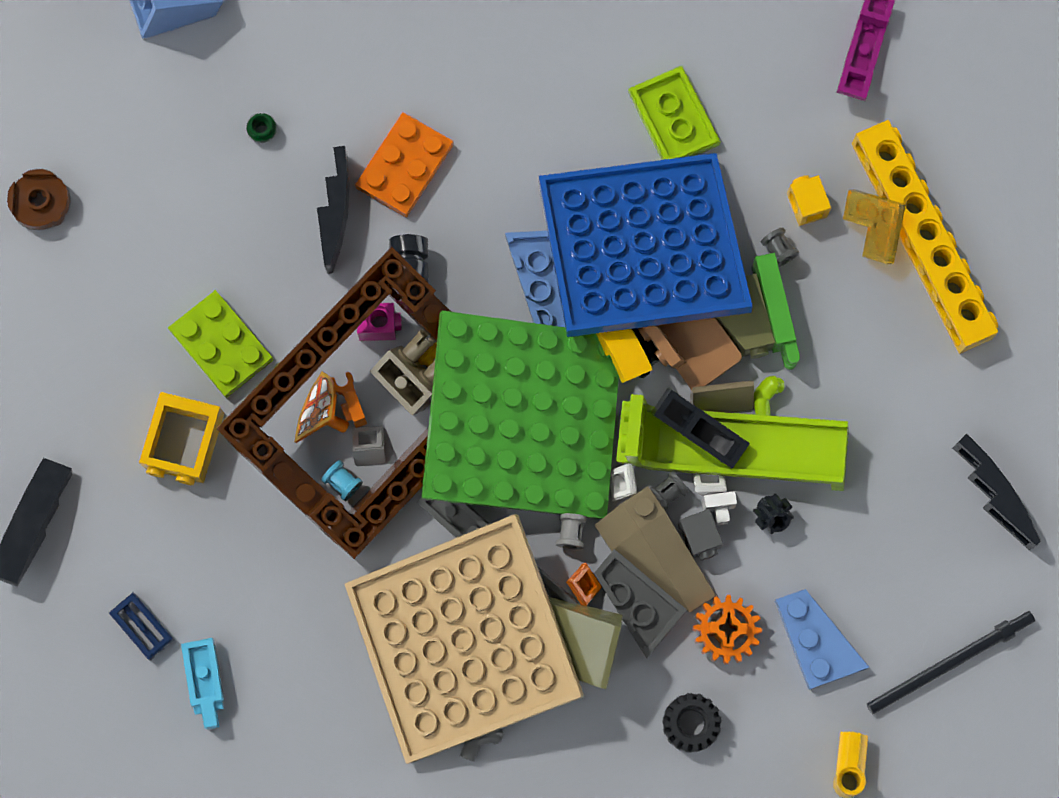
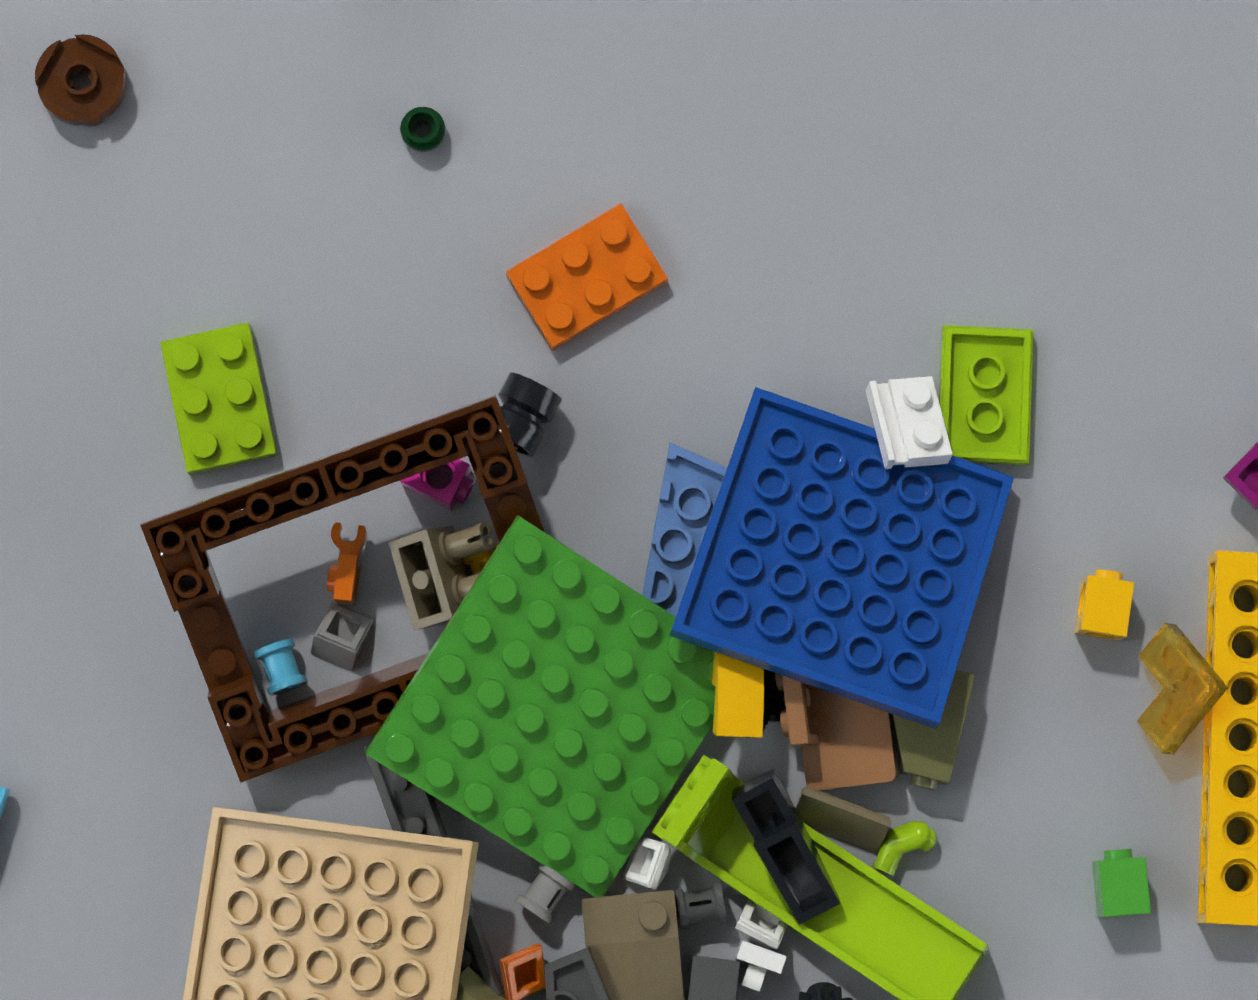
camera: 30 degrees right, 5 degrees up
(191, 408) = (82, 555): yellow window -> none
(319, 409) = (300, 556): shield -> none
(333, 218) = (452, 305): black slope -> none
(639, 151) = (909, 422): none -> white plate
(777, 308) = (978, 735): bright green hinge -> none
(779, 244) = (1030, 651): dark grey bush -> none
(905, 352) = (1121, 884): none -> bright green brick

